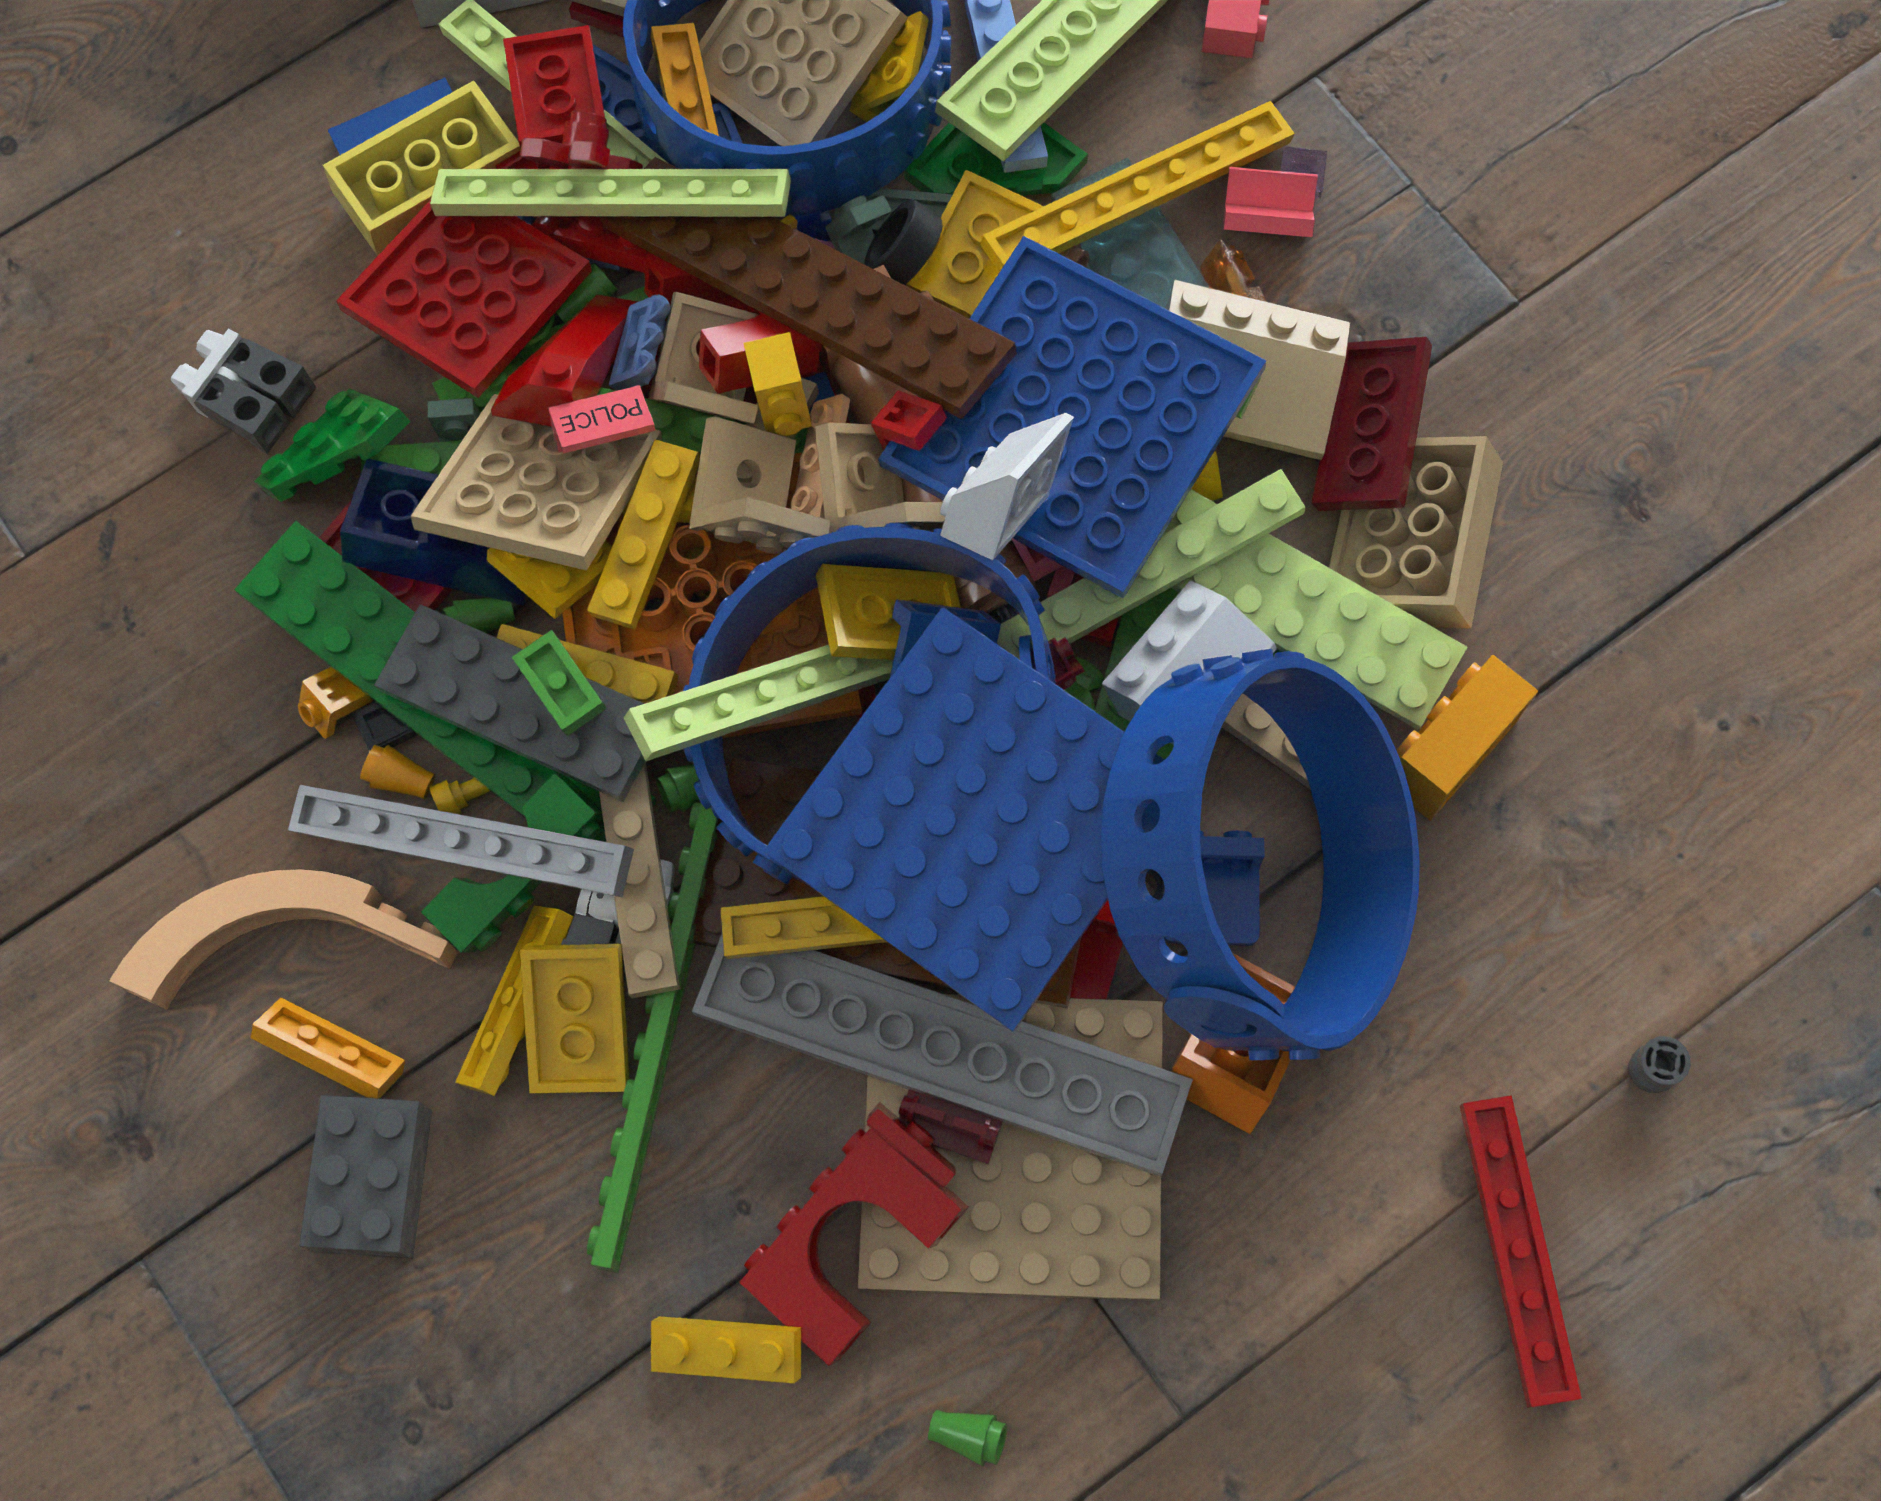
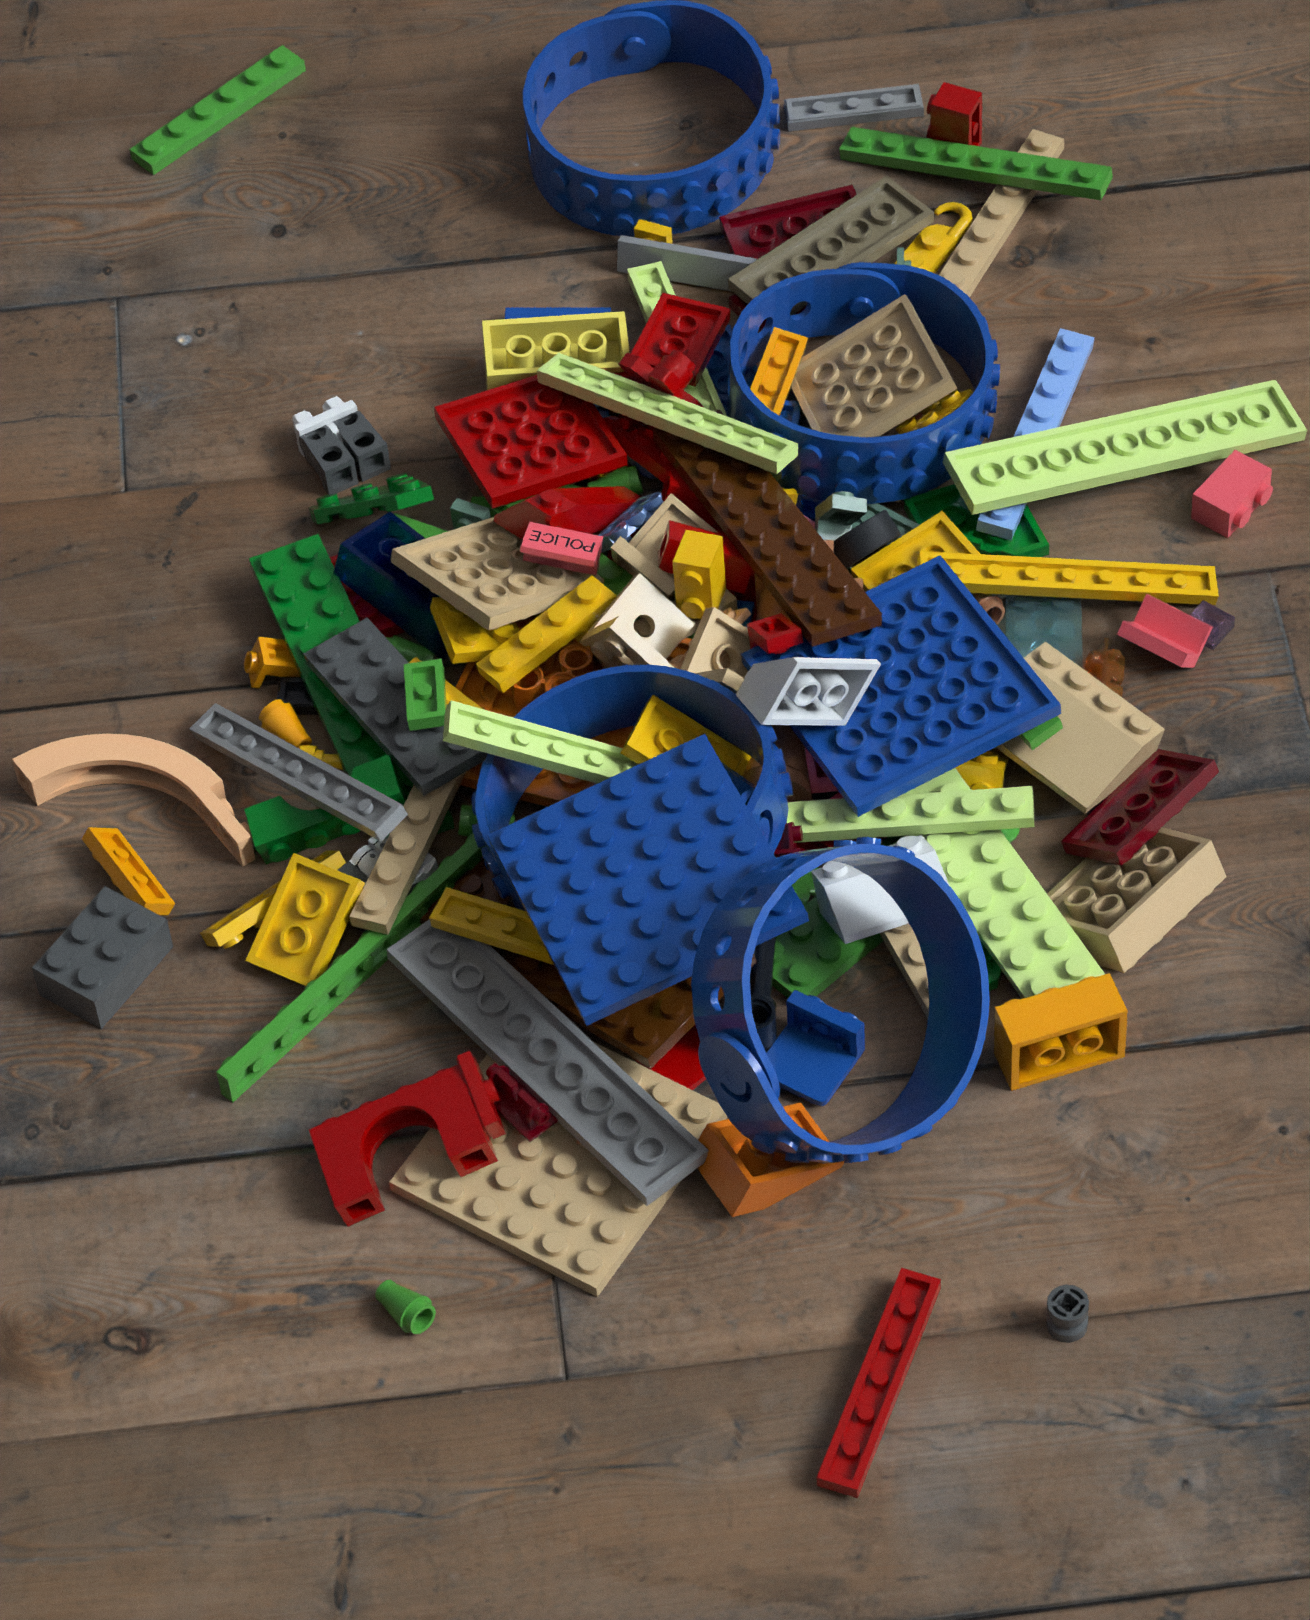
camera: 30 degrees right, 20 degrees down
(726, 1349) = (273, 1169): yellow plate -> none

